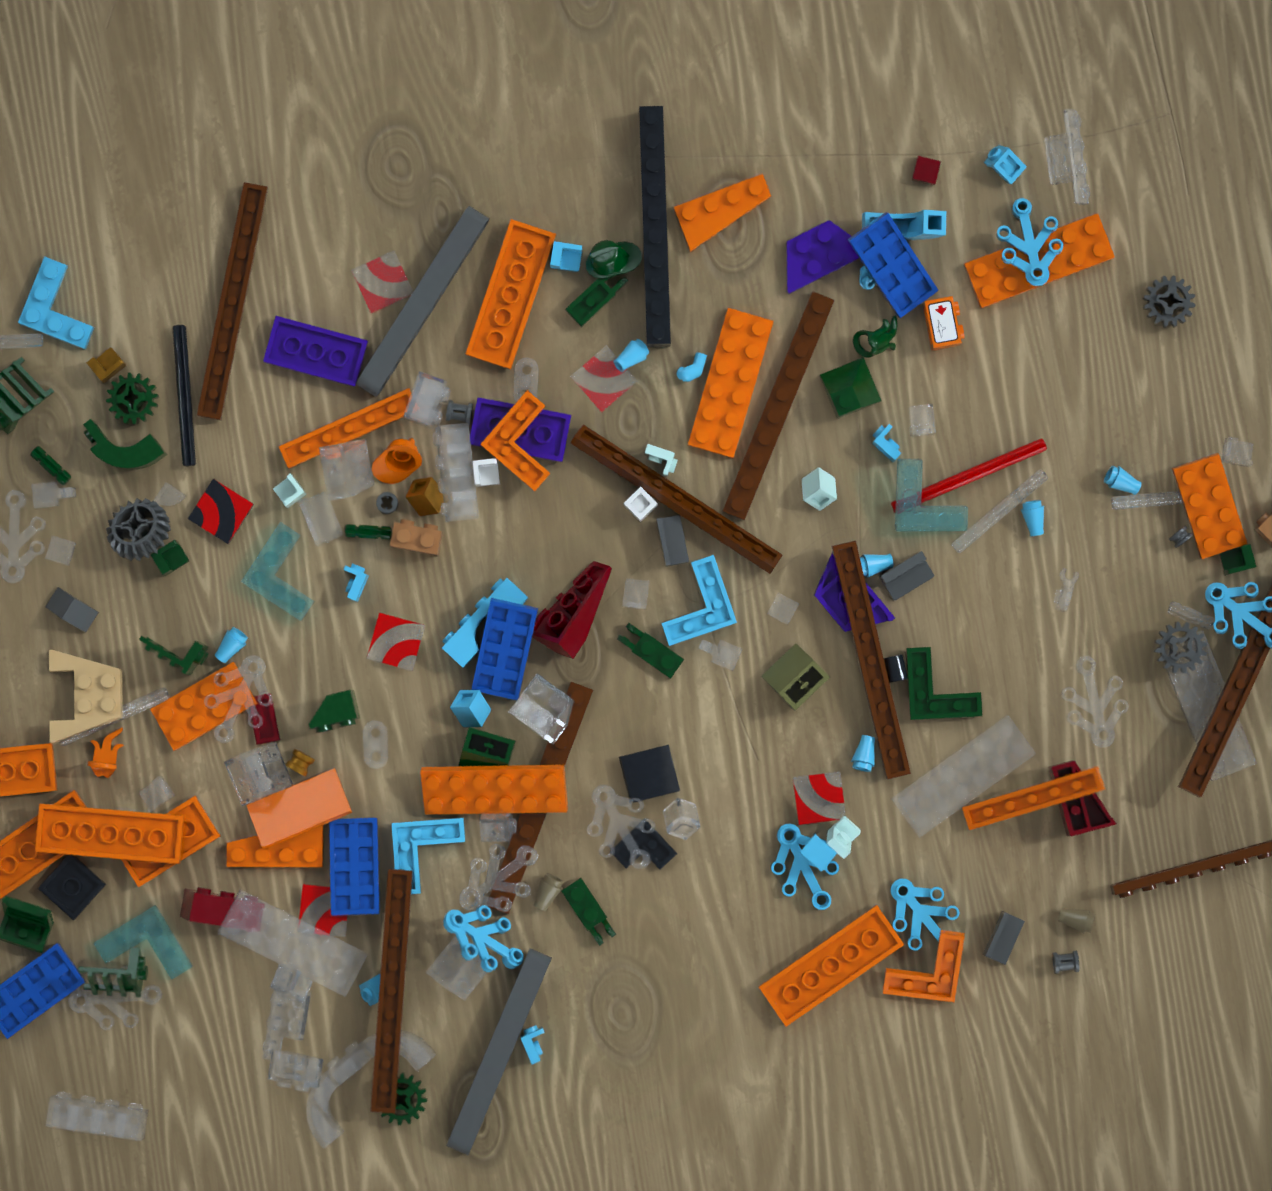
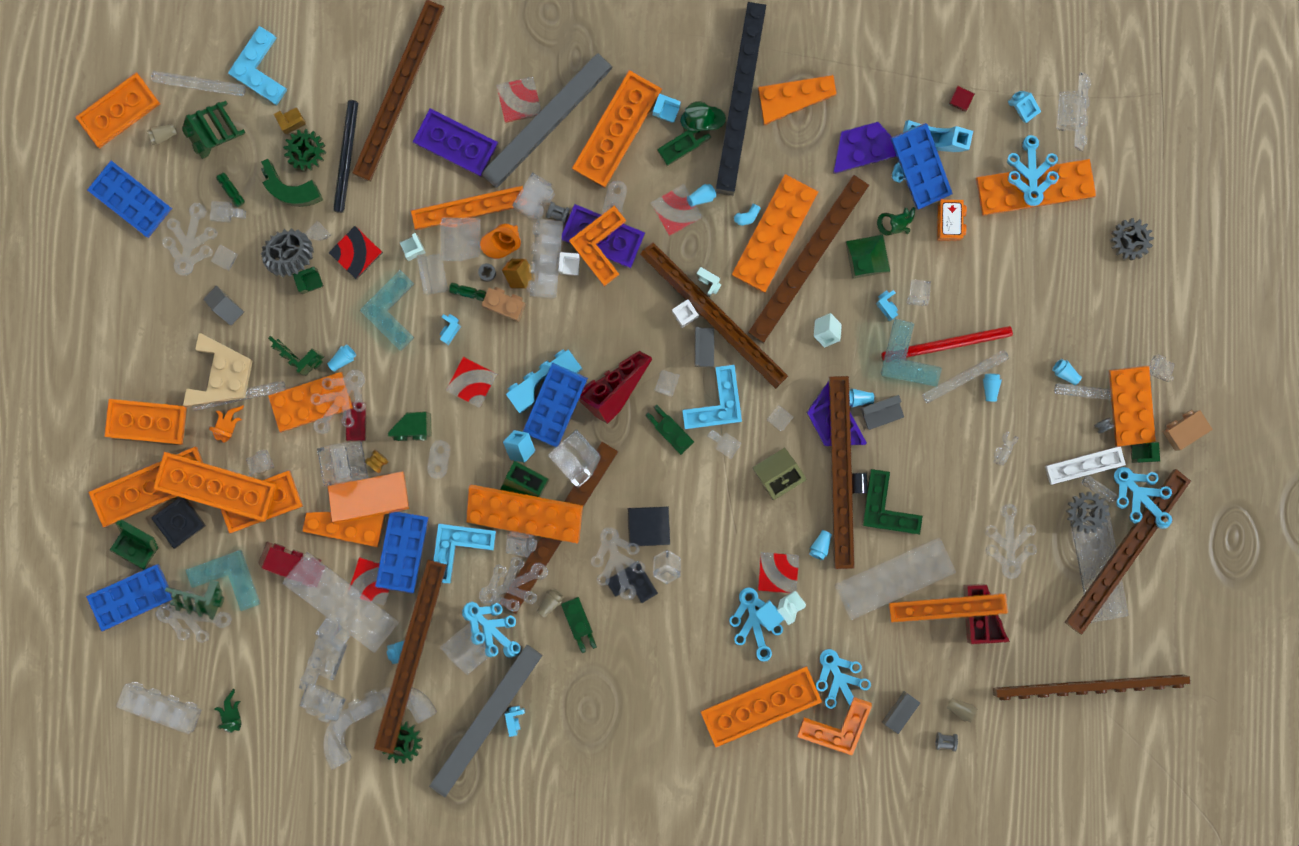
camera: 10 degrees right, 0 degrees up
(185, 1111) = (230, 717): none -> dark green piece
(1167, 590) = (1085, 465): none -> white plate

